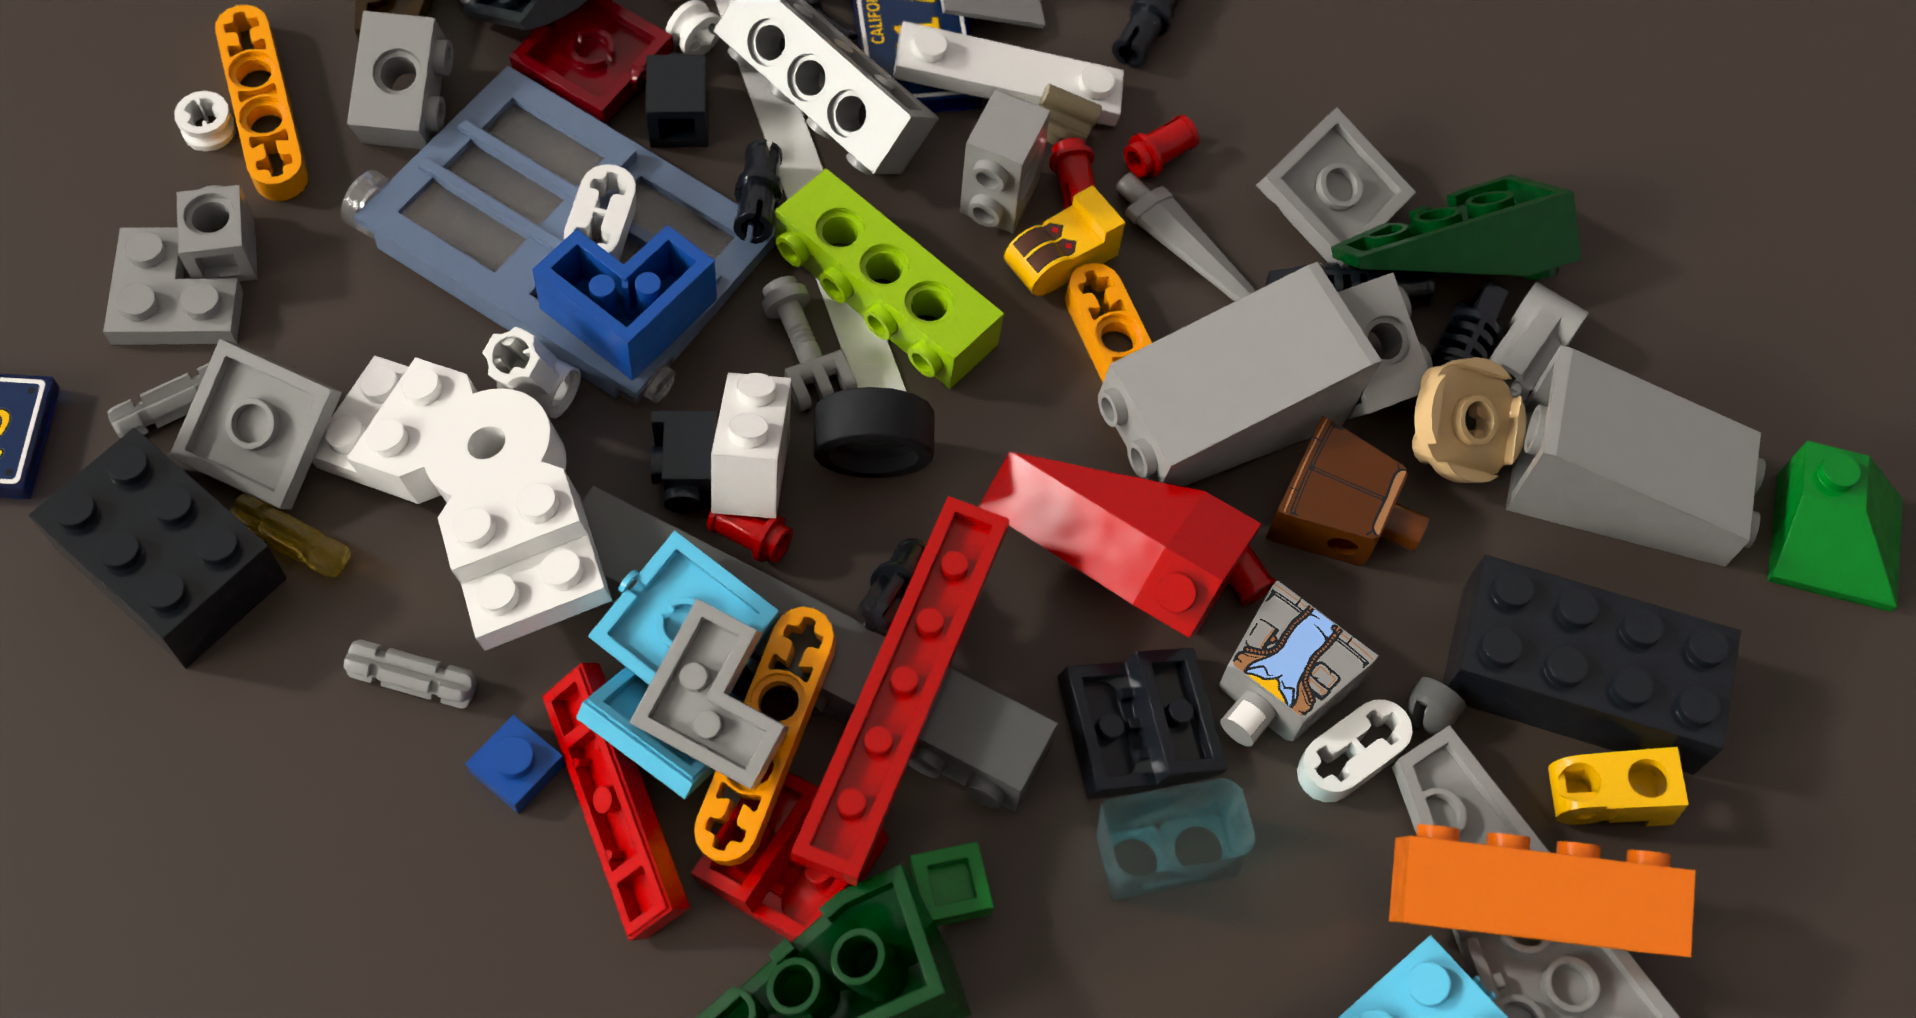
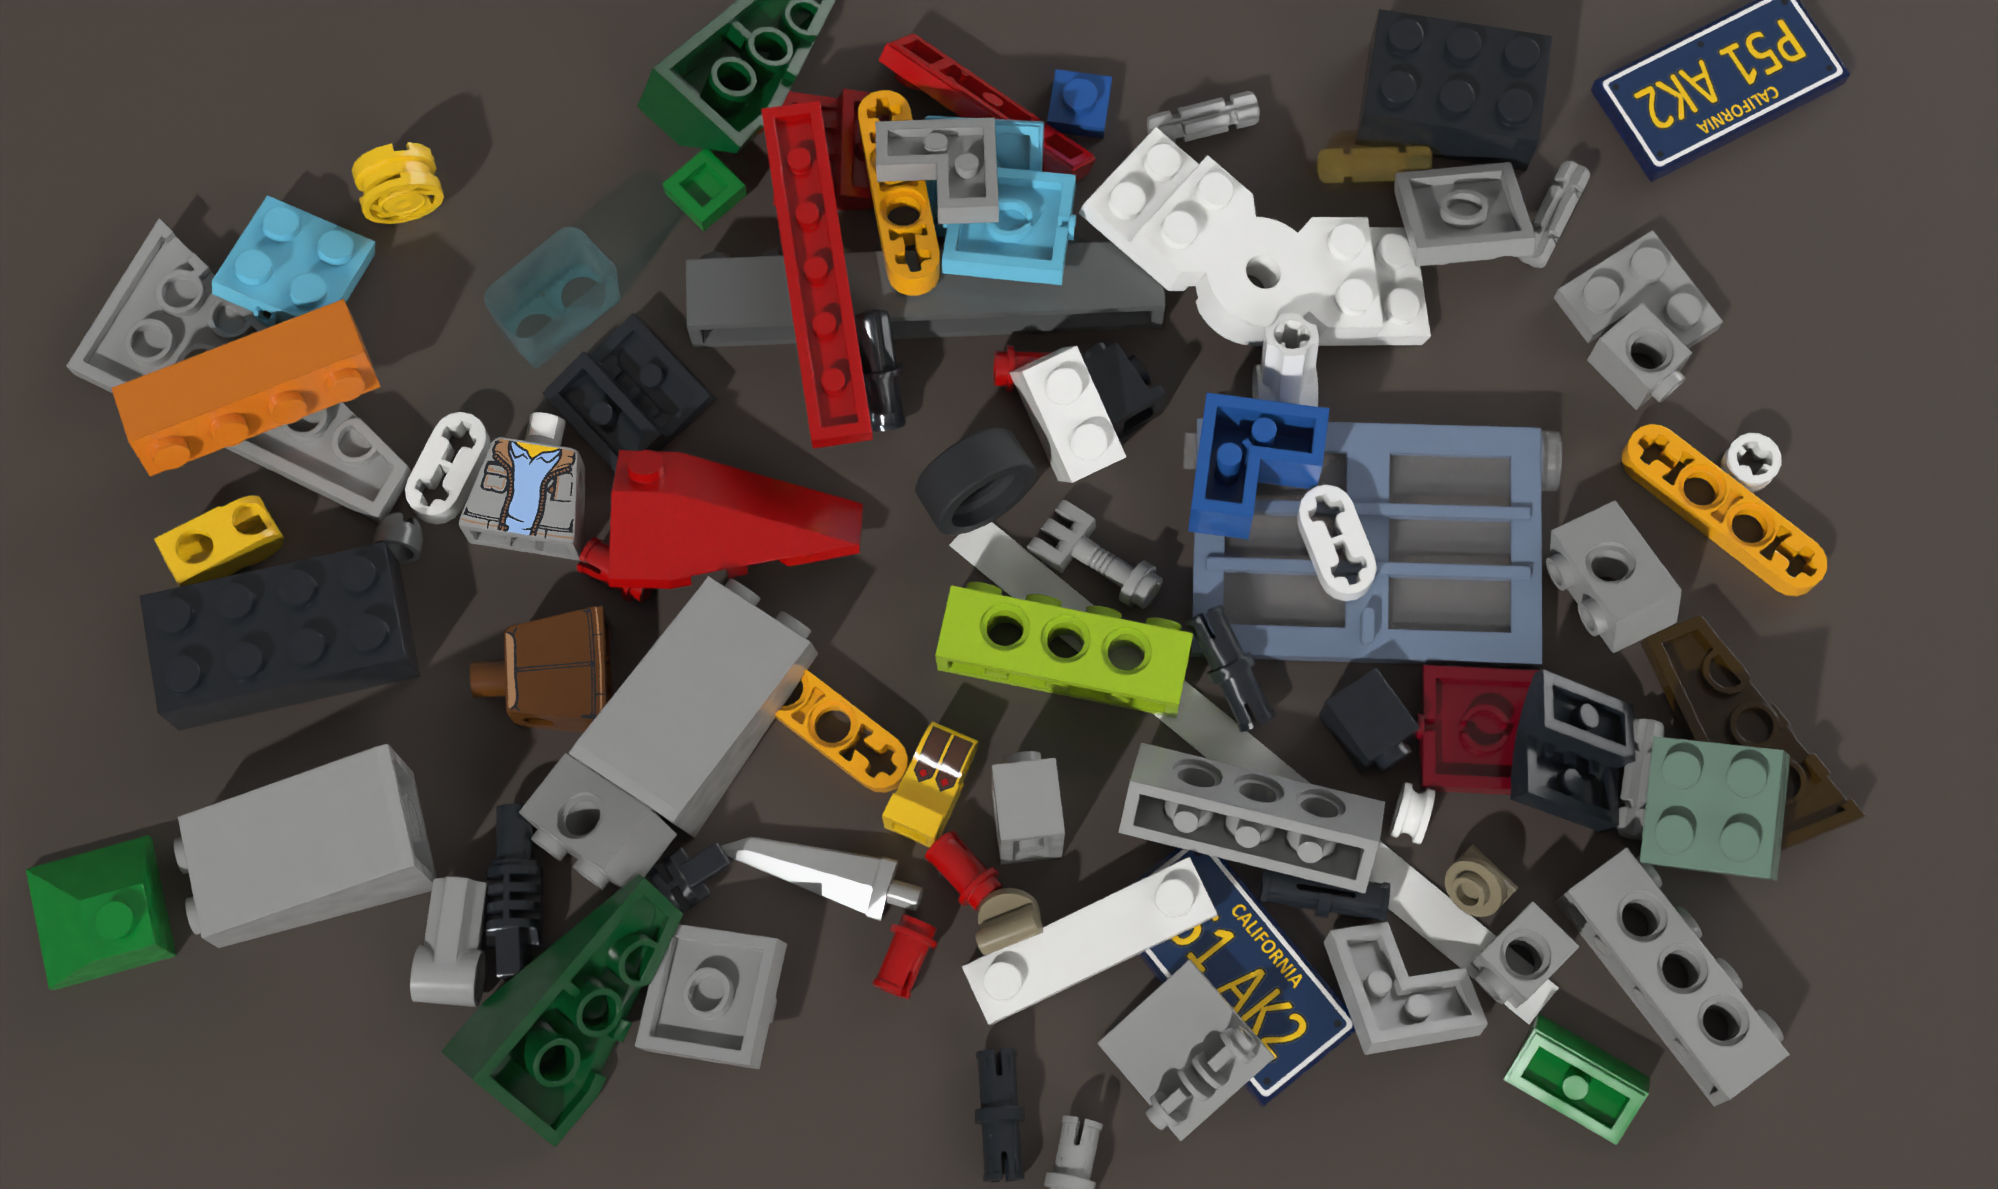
camera: 155 degrees right, 10 degrees up
(1441, 425) = (501, 805): tan plate -> none

